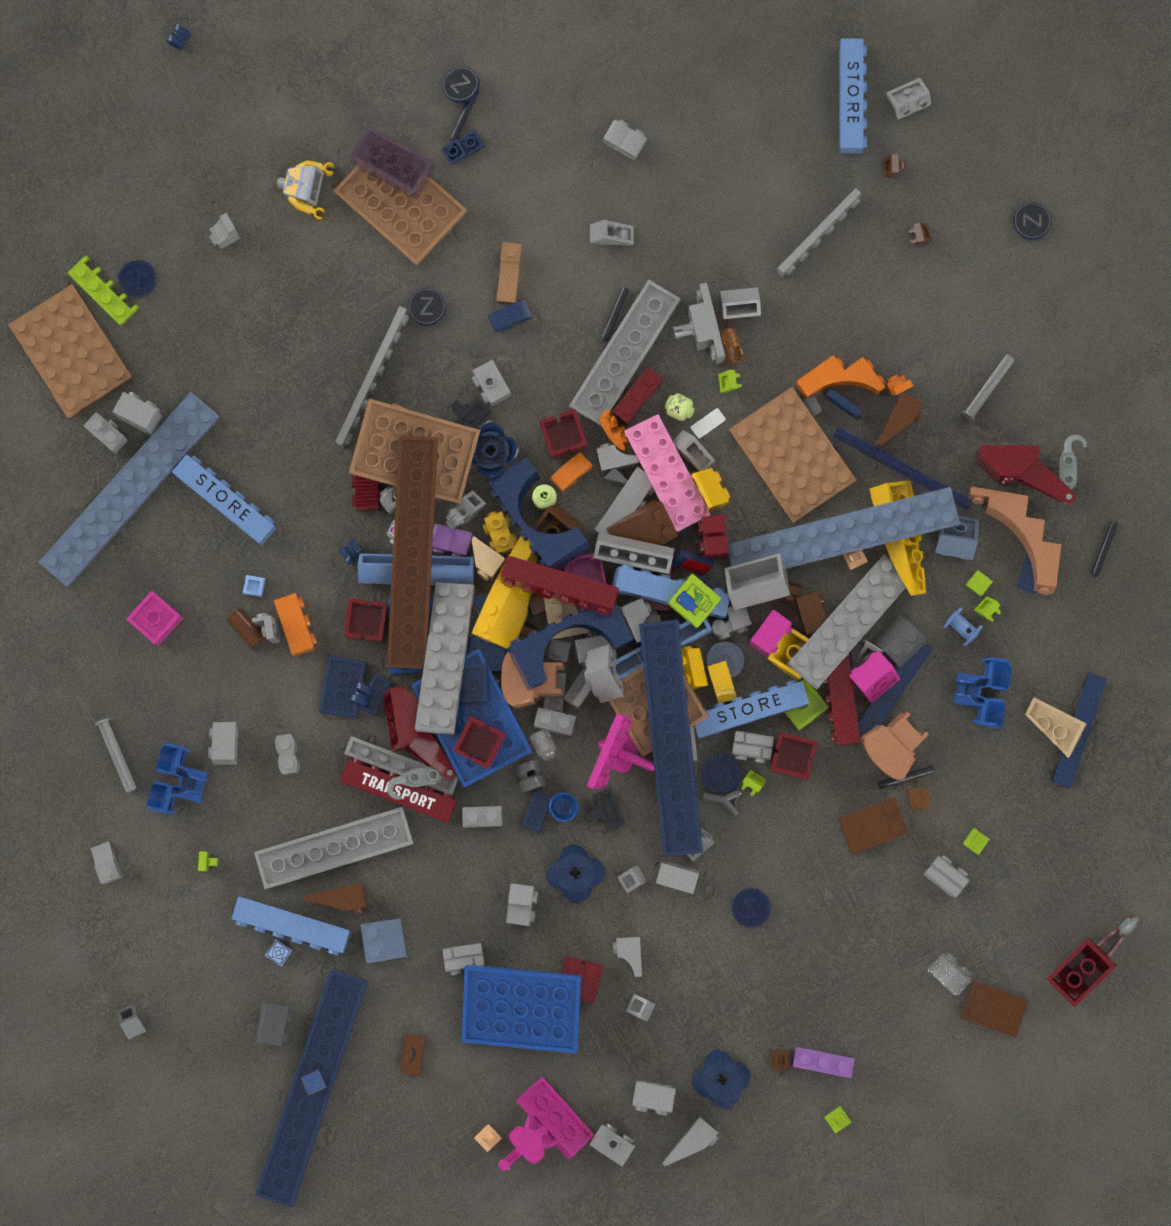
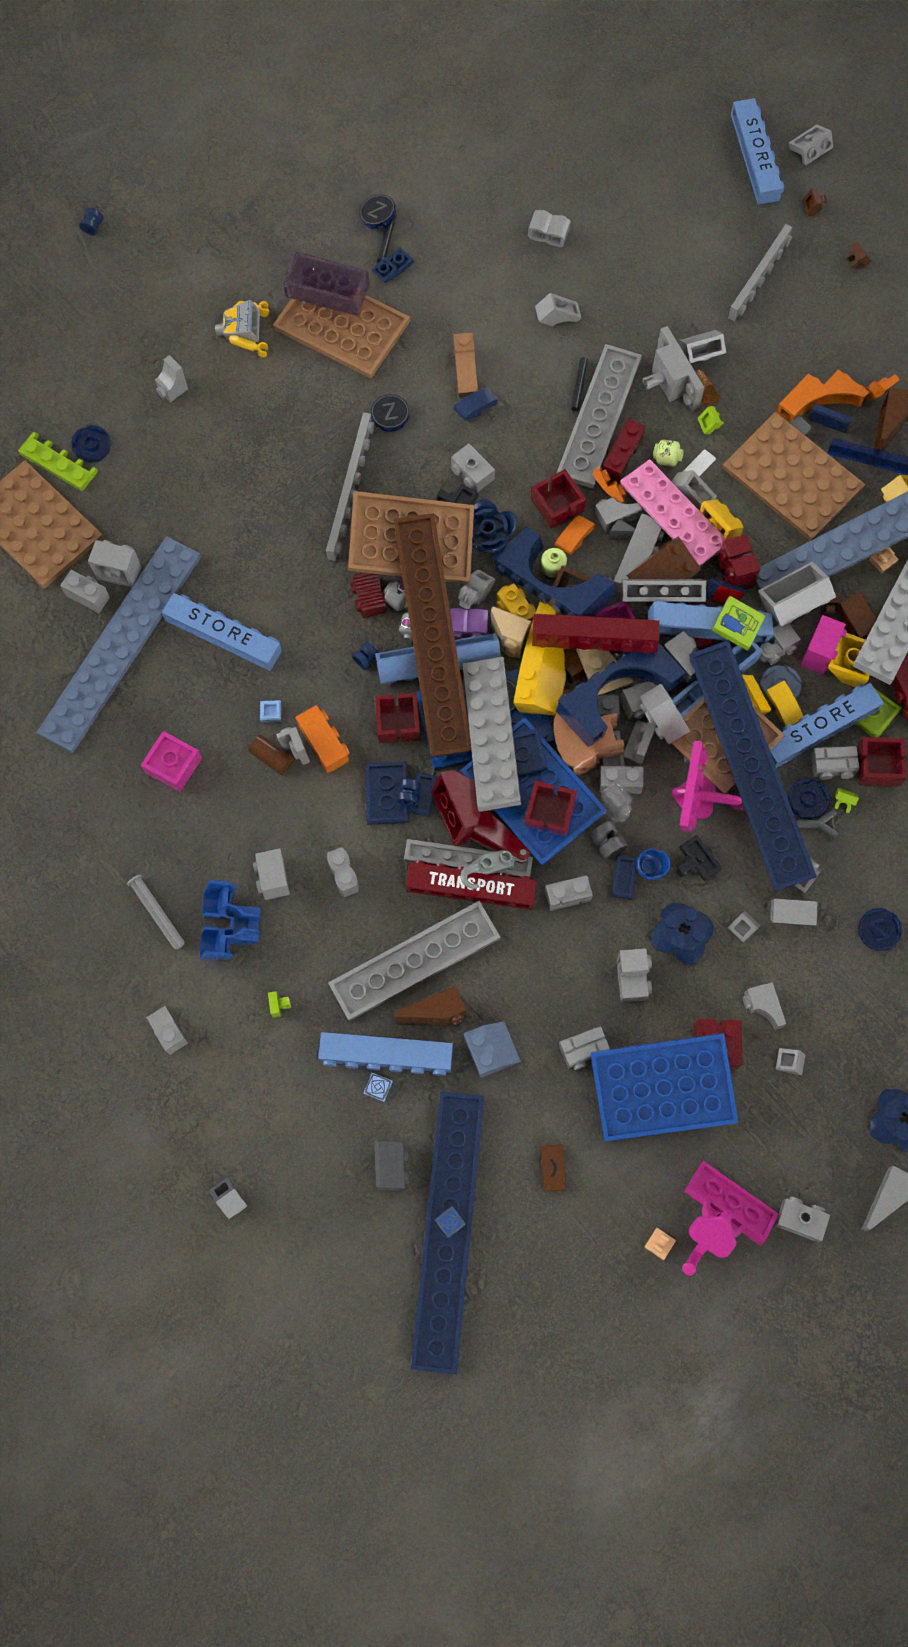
camera: 15 degrees left, 10 degrees down
(653, 1096) = (838, 1151): light grey brick -> none

